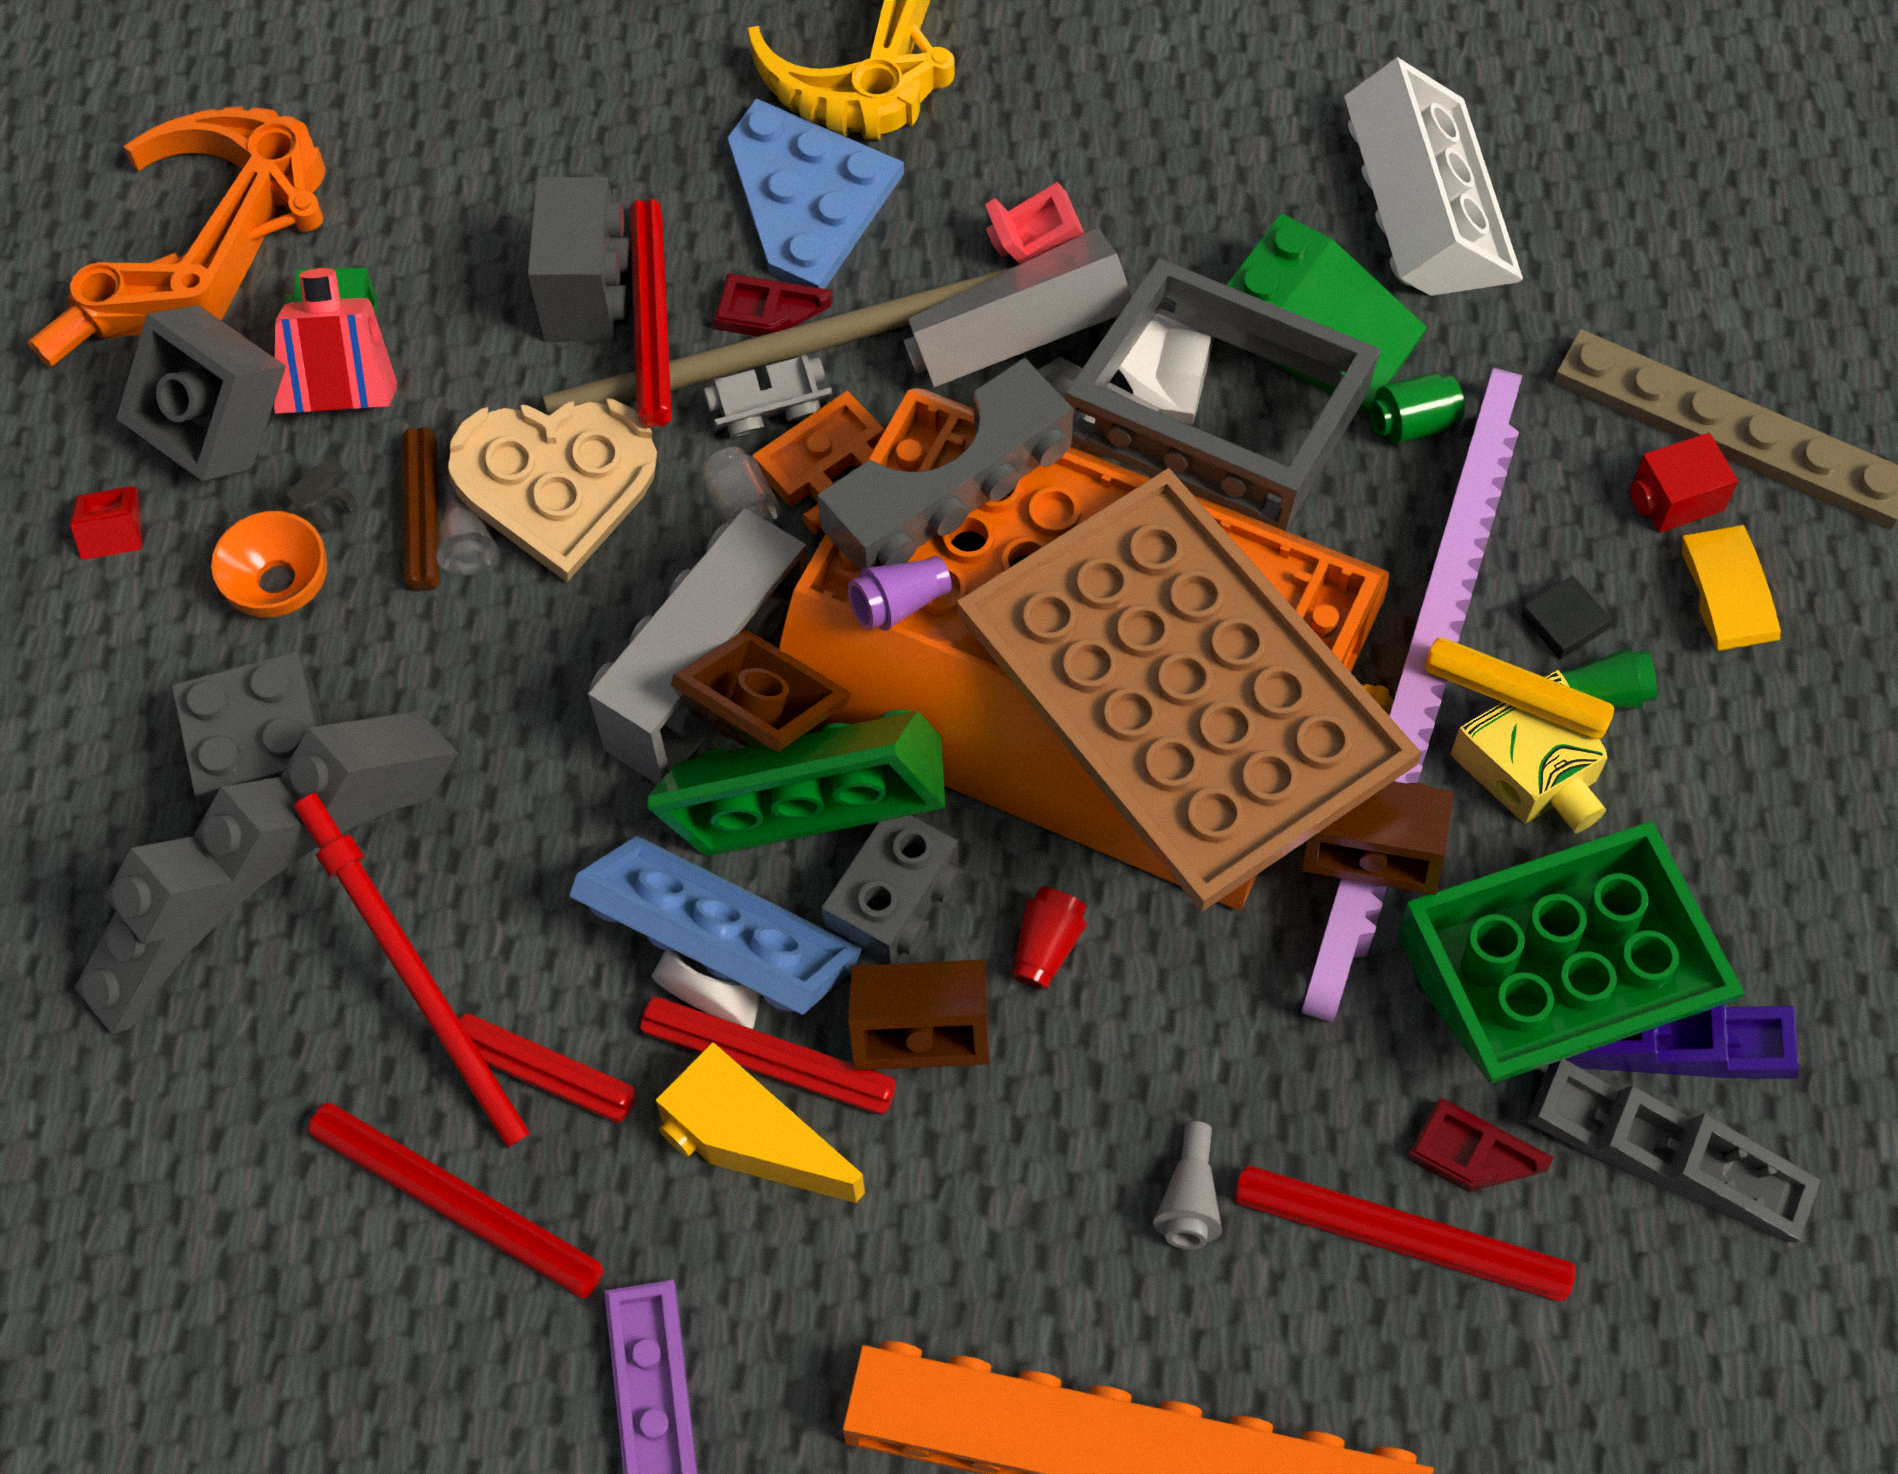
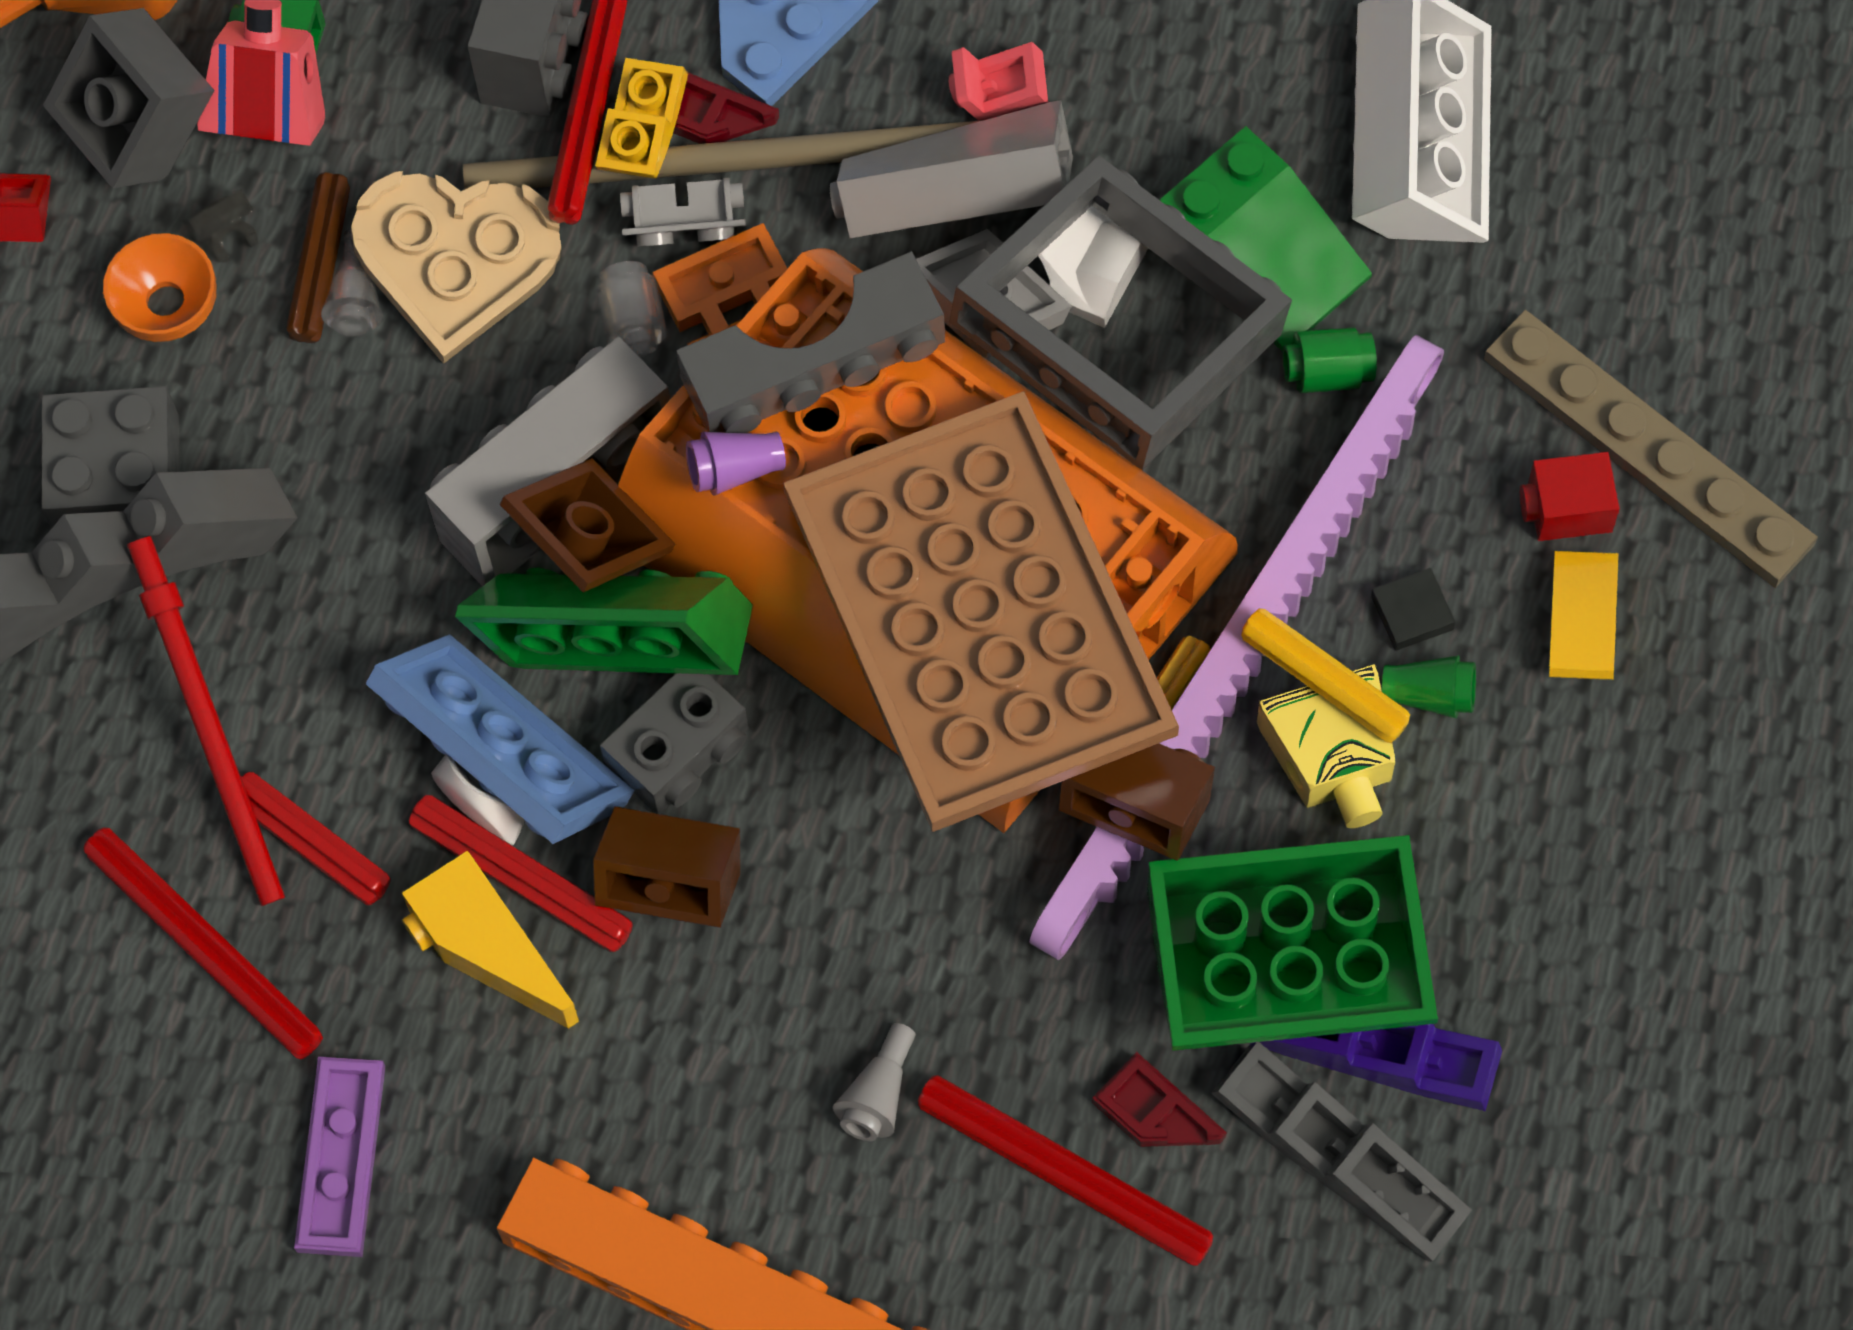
camera: 15 degrees right, 5 degrees up
(706, 319) = (643, 118): none -> yellow slope
(1047, 935) = (810, 818): red cone -> none

